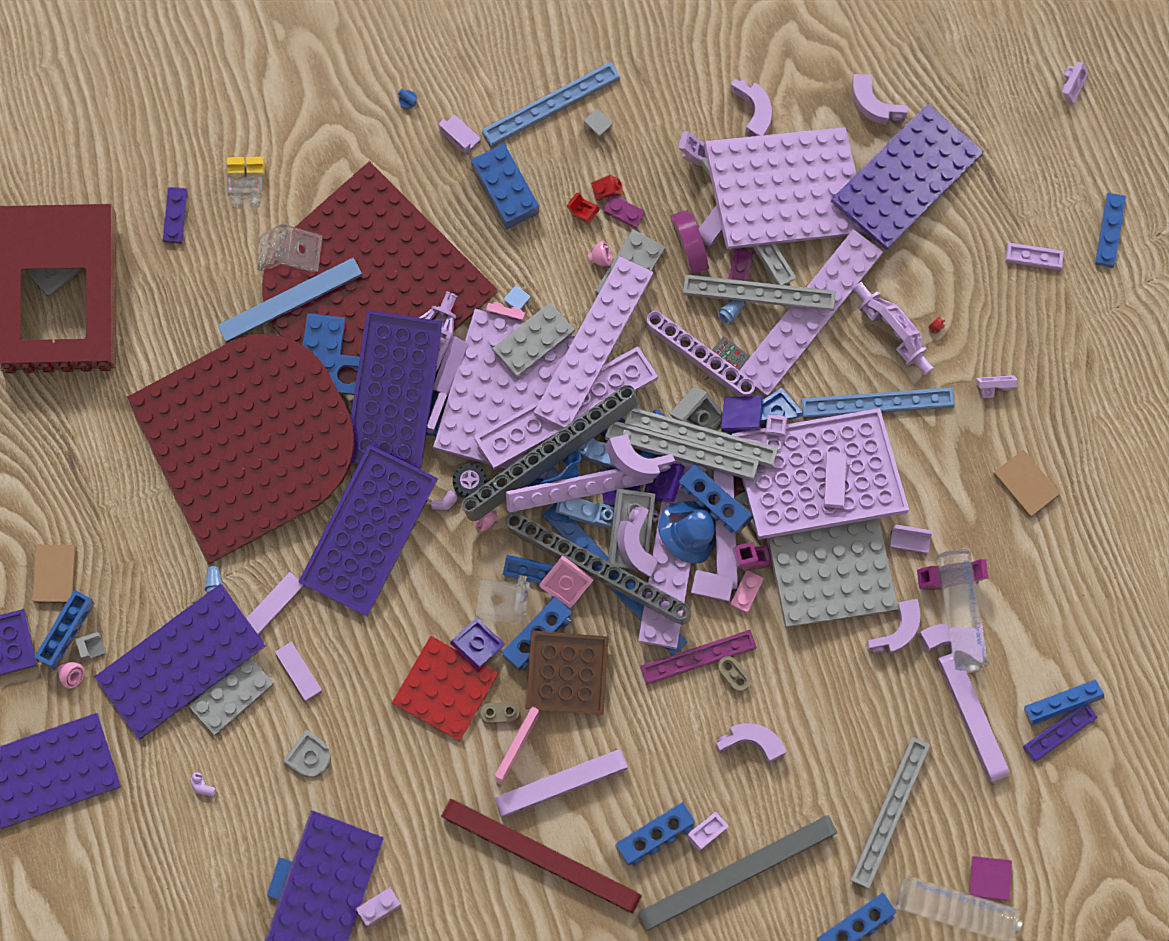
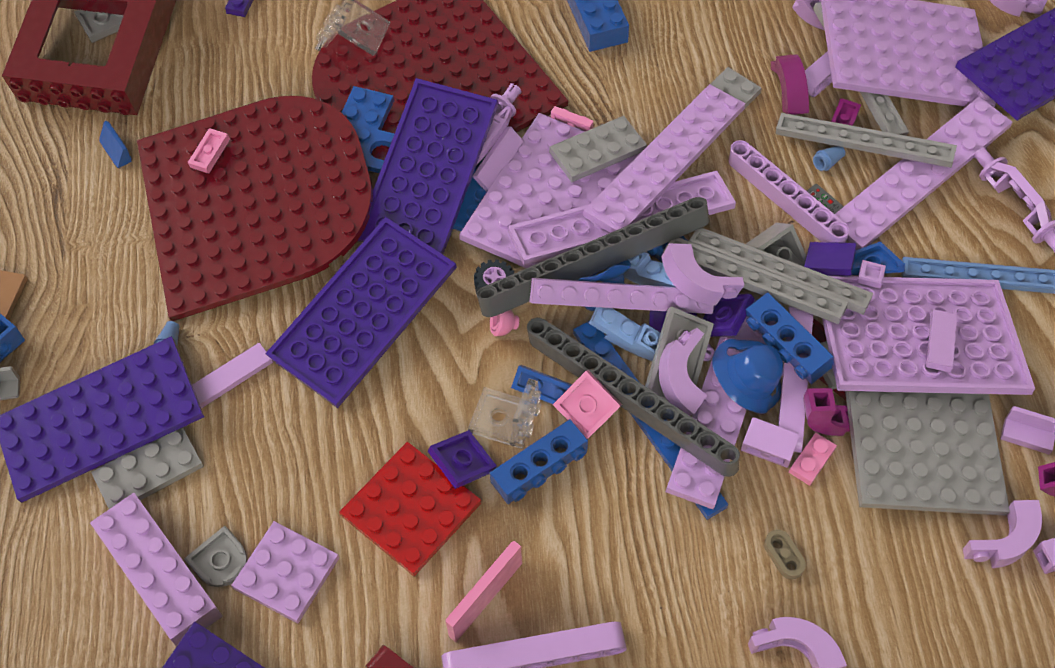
camera: 15 degrees right, 15 degrees down
(107, 405) = (114, 146): none -> blue slope
(200, 404) = (209, 150): none -> bright pink plate
(200, 786) = (72, 570): lavender arm -> none
(265, 773) = (155, 568): none -> lavender brick
(289, 300) = (341, 73): medium blue tile -> none
(298, 671) = (236, 456): lavender tile -> none
(362, 756) = (285, 572): none -> lavender plate
(436, 412) = (471, 202): lavender tile -> none
(446, 503) = (462, 300): lavender arm -> none
(500, 714) = (472, 550): dark tan plate -> none
(517, 298) = (589, 110): light blue tile -> none
(567, 672) = (568, 512): reddish brown plate -> none
(582, 208) = (675, 41): red bracket -> none
(601, 255) = (688, 84): bright pink brick -> none
(607, 187) = (705, 25): red bracket -> none
(624, 211) = (720, 51): magenta plate -> none
(697, 657) = (739, 526): magenta tile -> none

